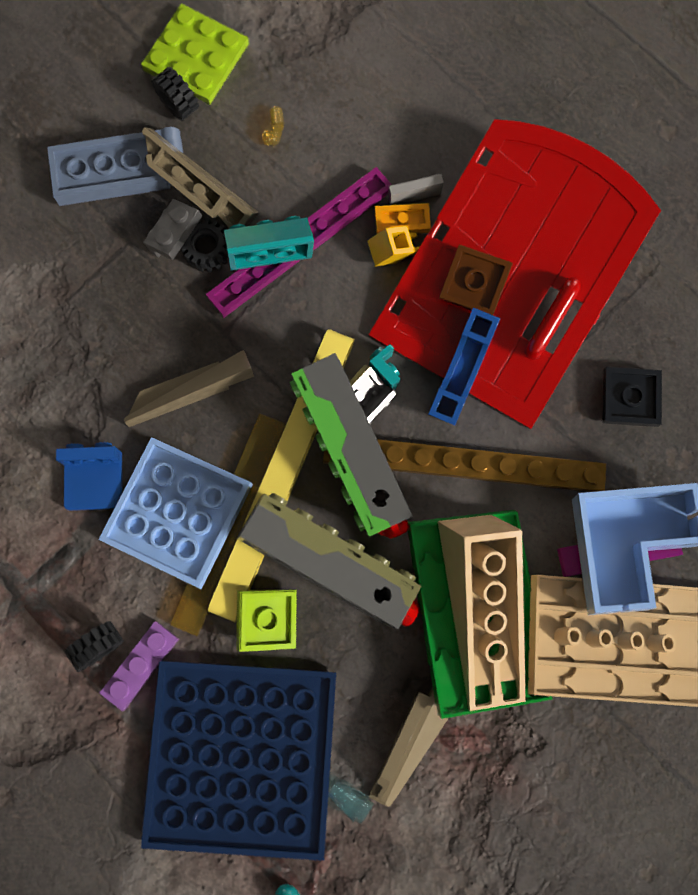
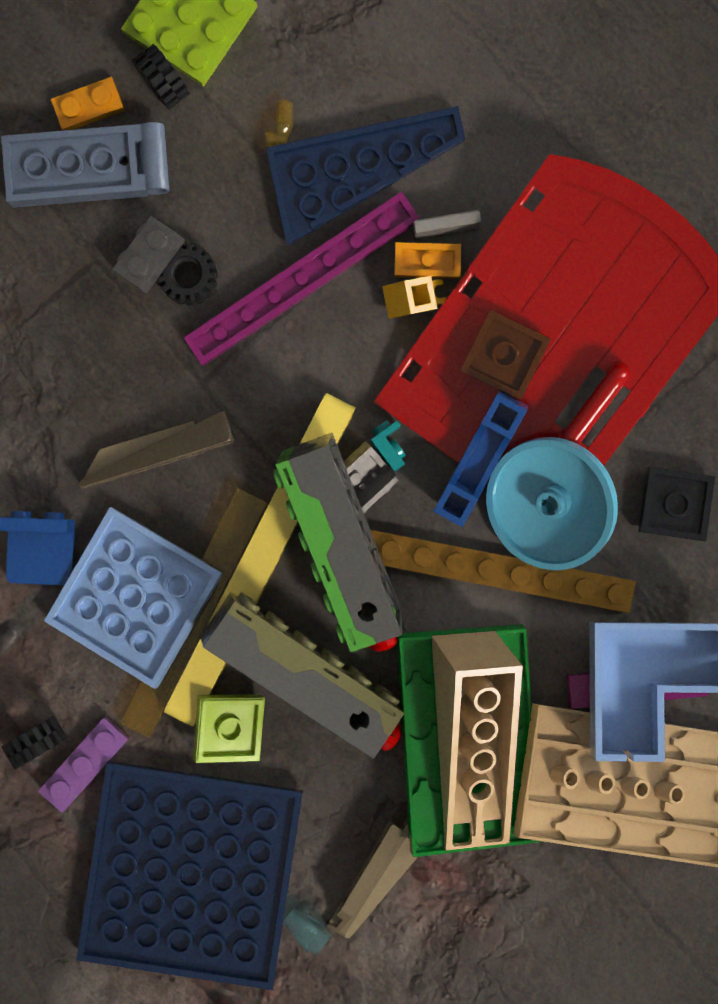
camera: 10 degrees right, 10 degrees up
(119, 121) = (88, 104): none -> light orange plate
(195, 182) = (181, 198): dark tan wedge -> none
(269, 242) = (261, 283): teal slope -> none
(324, 156) = (339, 170): none -> dark blue wing
(528, 399) = (552, 503): none -> medium azure dish

